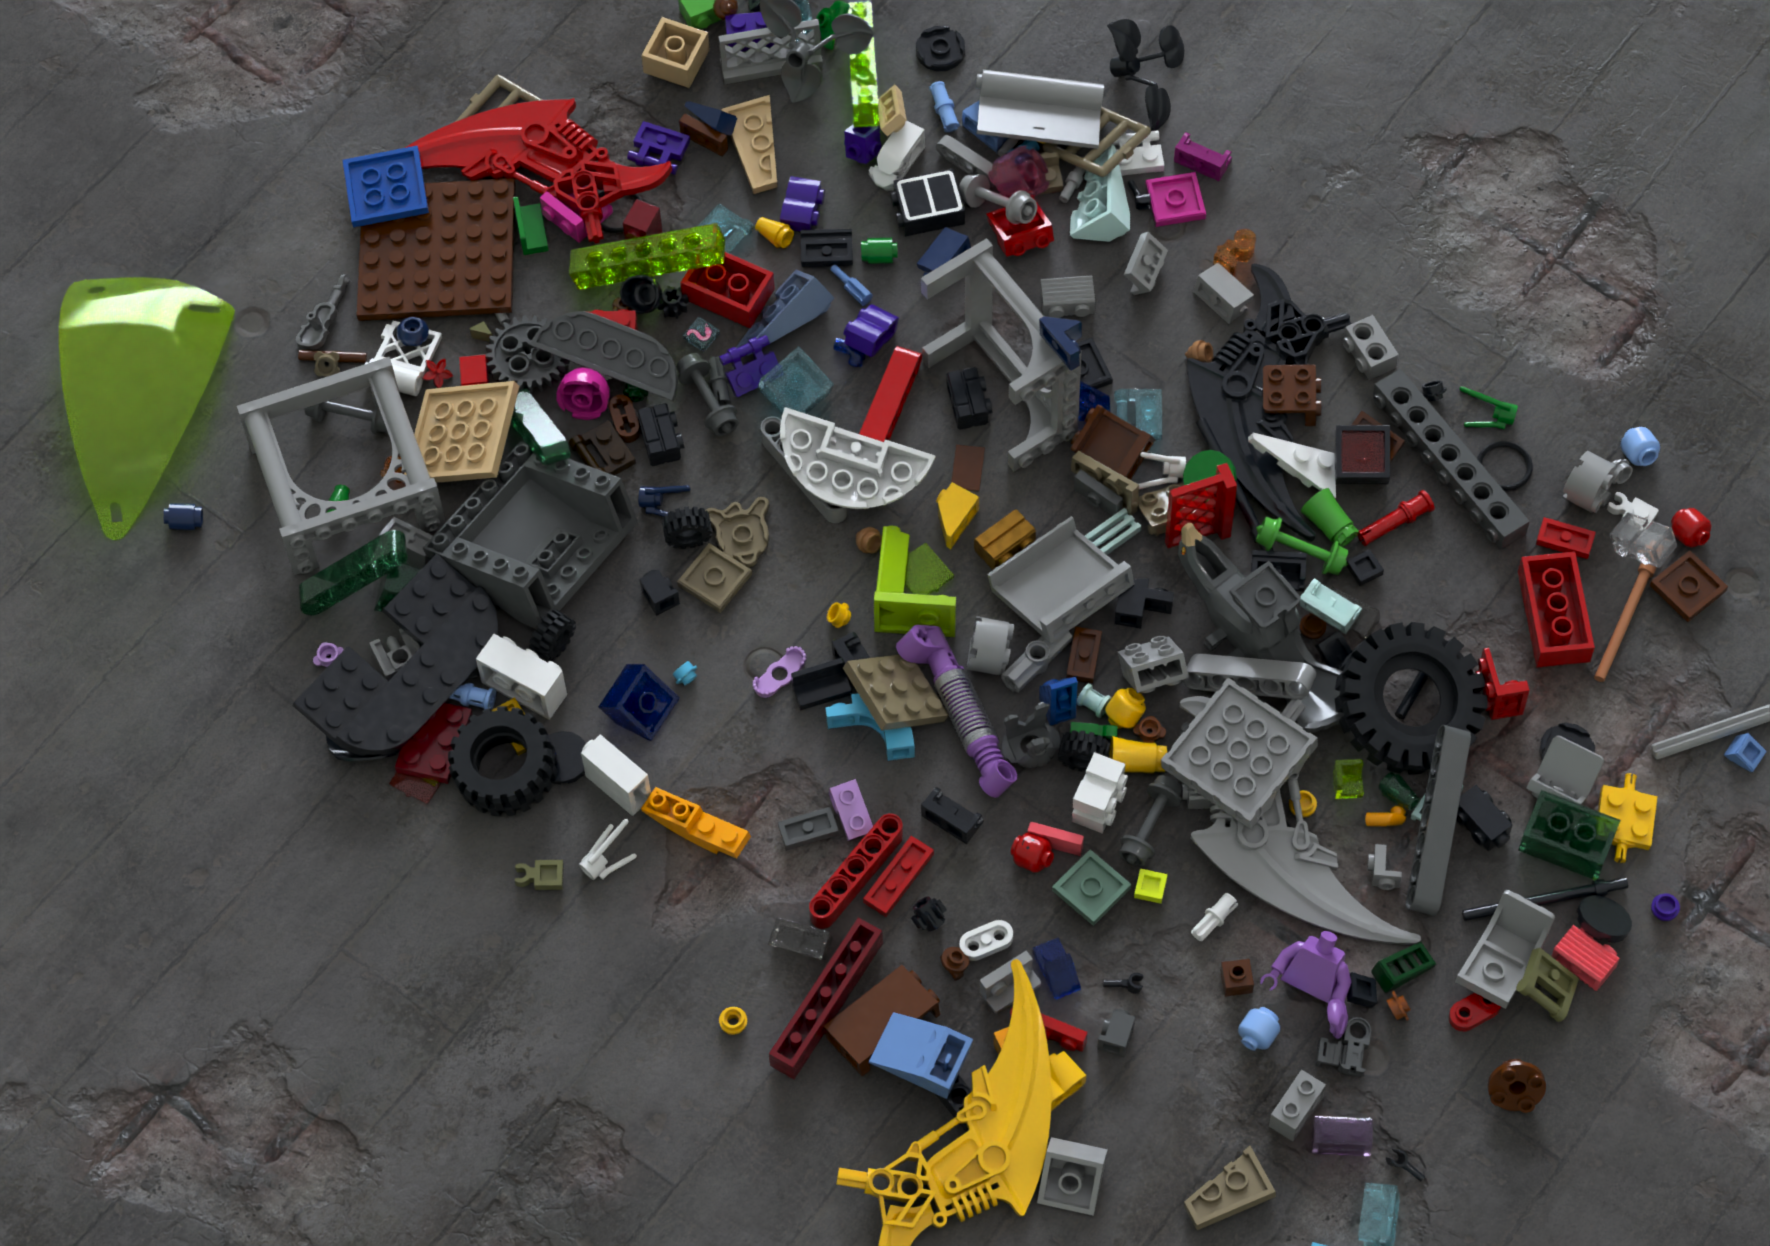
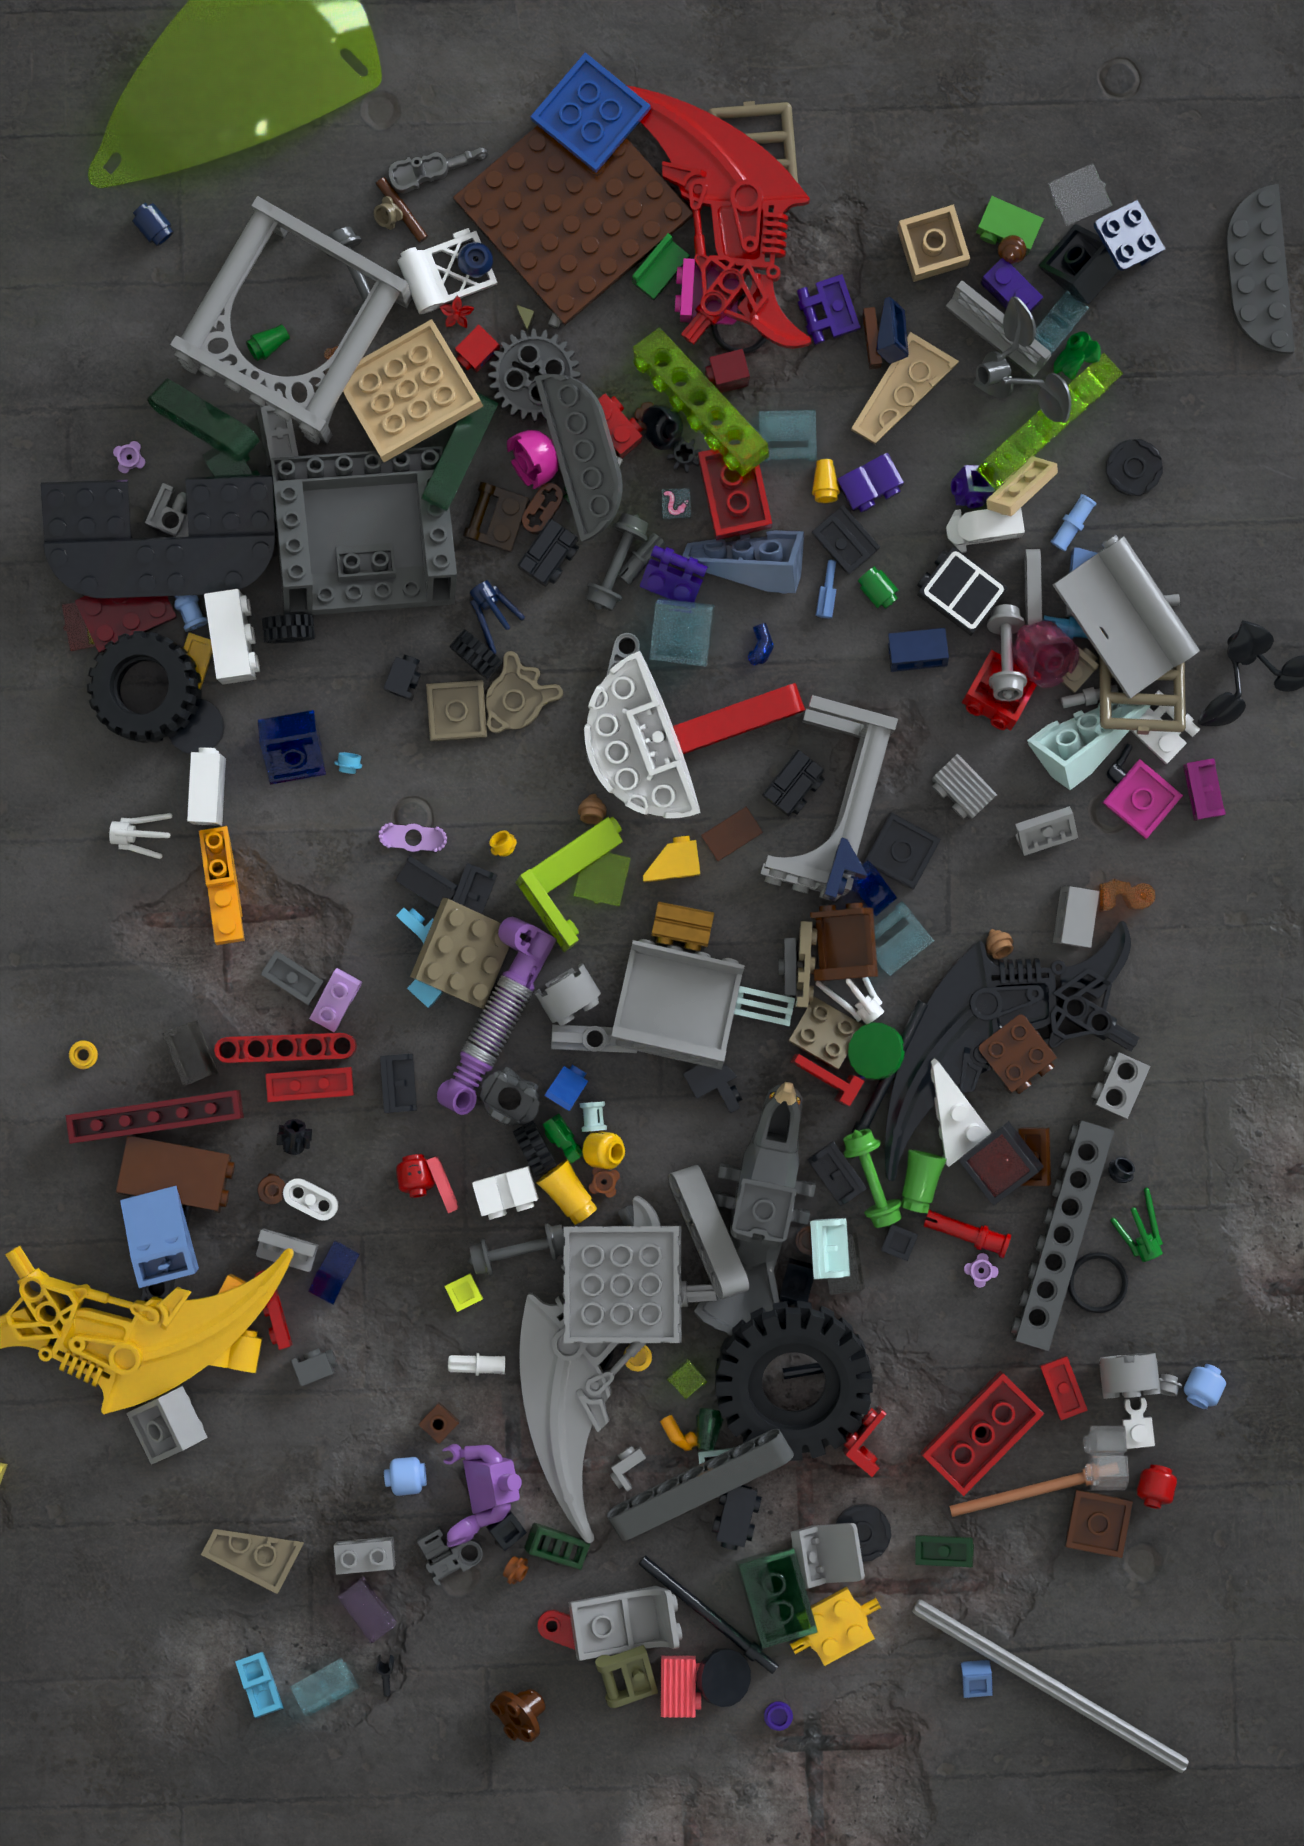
camera: 45 degrees right, 25 degrees up
(545, 875) = (83, 801): olive plate -> none
(870, 330) = (791, 648): dark purple brick -> none
(1084, 654) = (629, 1075): reddish brown plate -> none
(1091, 887) = (424, 1246): sand green plate -> none
(1126, 983) = (364, 1335): black hand -> none
(1153, 664) = (658, 1143): light grey brick -> none
(1431, 524) = (981, 1262): none -> lavender plate
(1626, 698) = (944, 1551): none -> dark green plate

